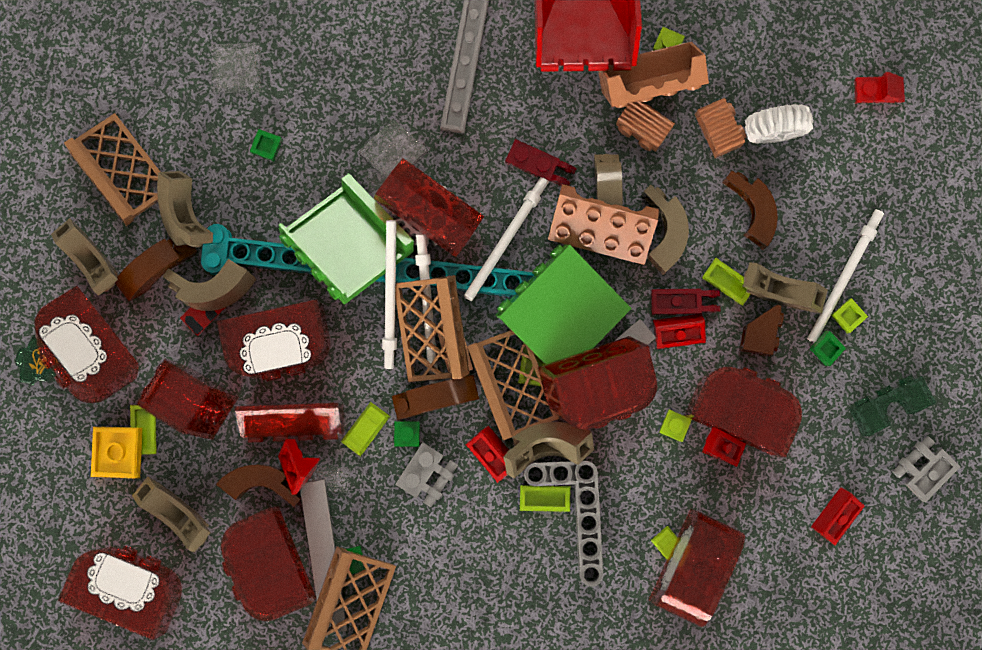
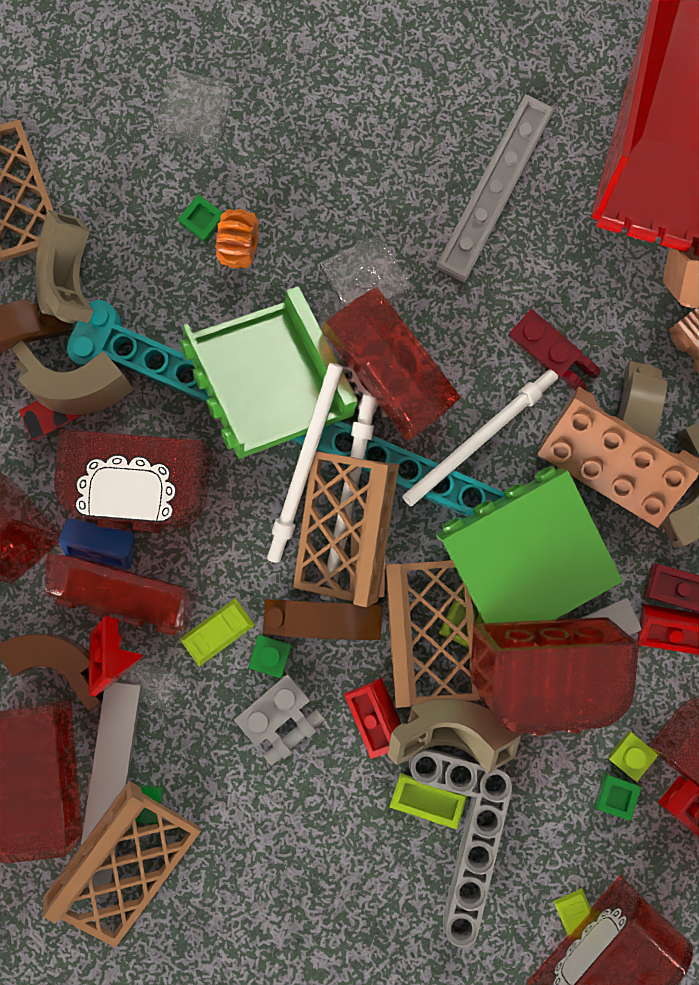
camera: 15 degrees right, 0 degrees up
(264, 392) = (97, 544): none -> blue slope
(296, 152) = (237, 238): none -> orange gear
(672, 455) = (617, 797): none -> green plate

